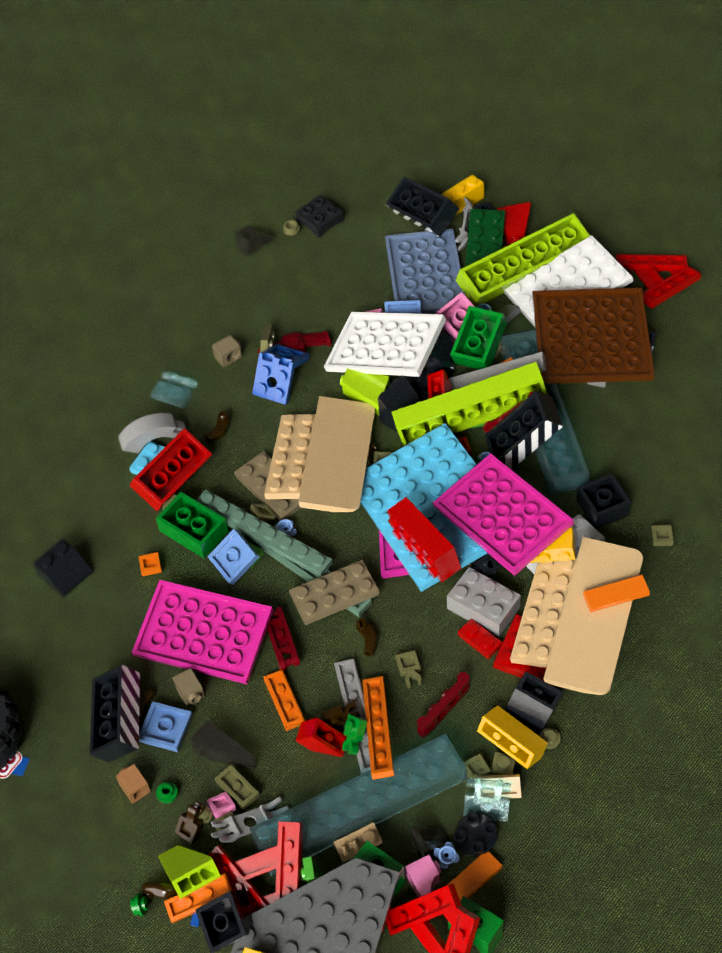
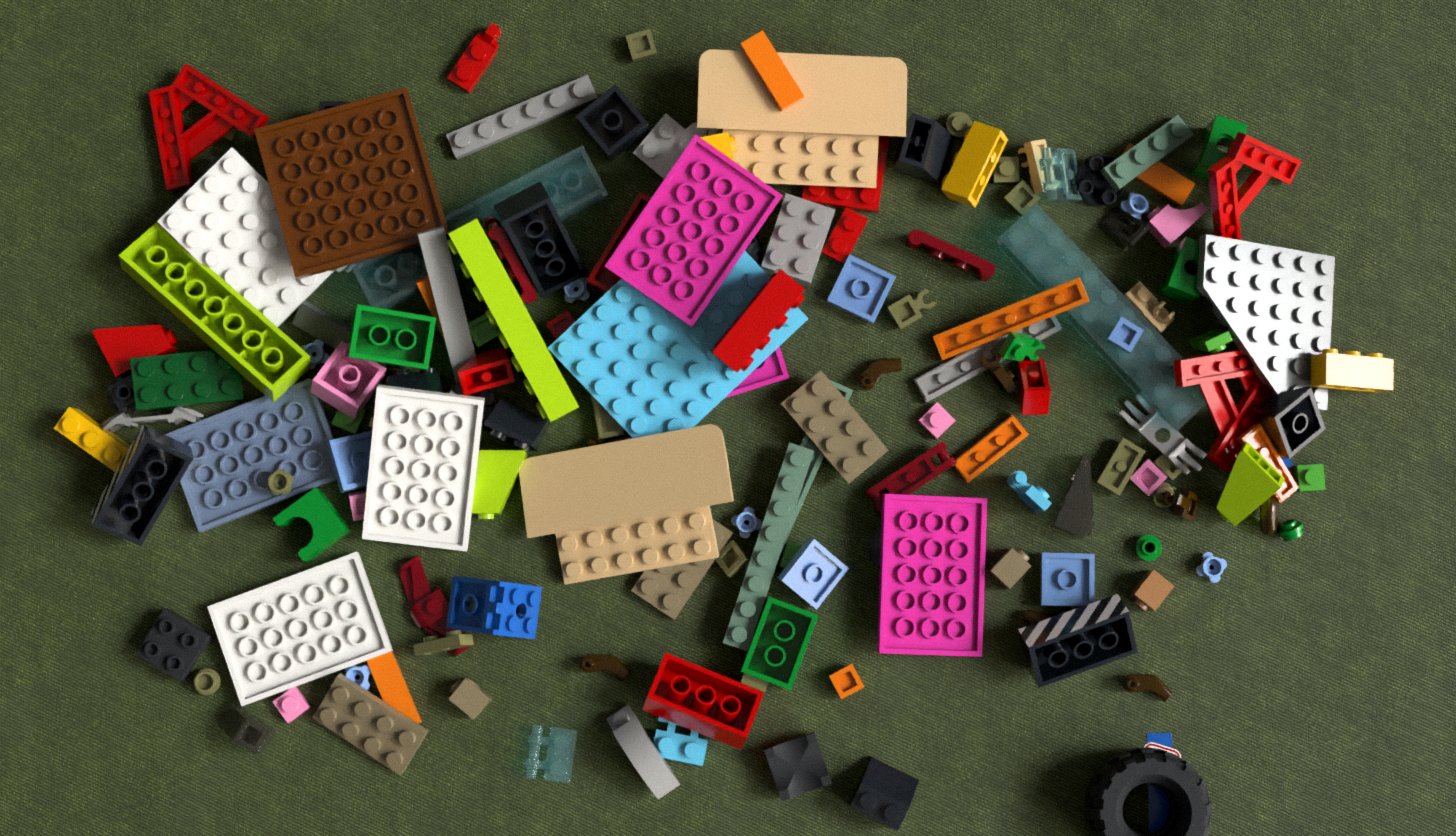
camera: 110 degrees left, 30 degrees up
(65, 765) = (1146, 682): none -> dark brown arm
(104, 520) = (797, 766): none -> black brick
(130, 832) = (1218, 564): none -> light blue plate
(176, 936) = (1310, 477): none -> bright green plate
(231, 298) = (370, 724): none -> dark tan plate
(236, 707) = (1033, 497): none -> medium azure plate
(248, 316) = (392, 685): none -> orange tile
(260, 266) = (291, 704): none -> bright pink plate
(264, 299) = (363, 672): none -> light blue plate
(306, 276) = (299, 628): none -> white plate
(318, 668) = (936, 420): none -> bright pink plate
(336, 799) = (1124, 335): none -> medium blue plate
(370, 295) = (324, 518): none -> green piece
(402, 275) = (274, 478): none -> olive plate
(434, 638) = (861, 289): none -> medium blue plate
(489, 873) = (1146, 153): none -> sand green plate
(623, 455) = (522, 117): none -> light grey plate
(673, 436) = (476, 59): none -> red hinge

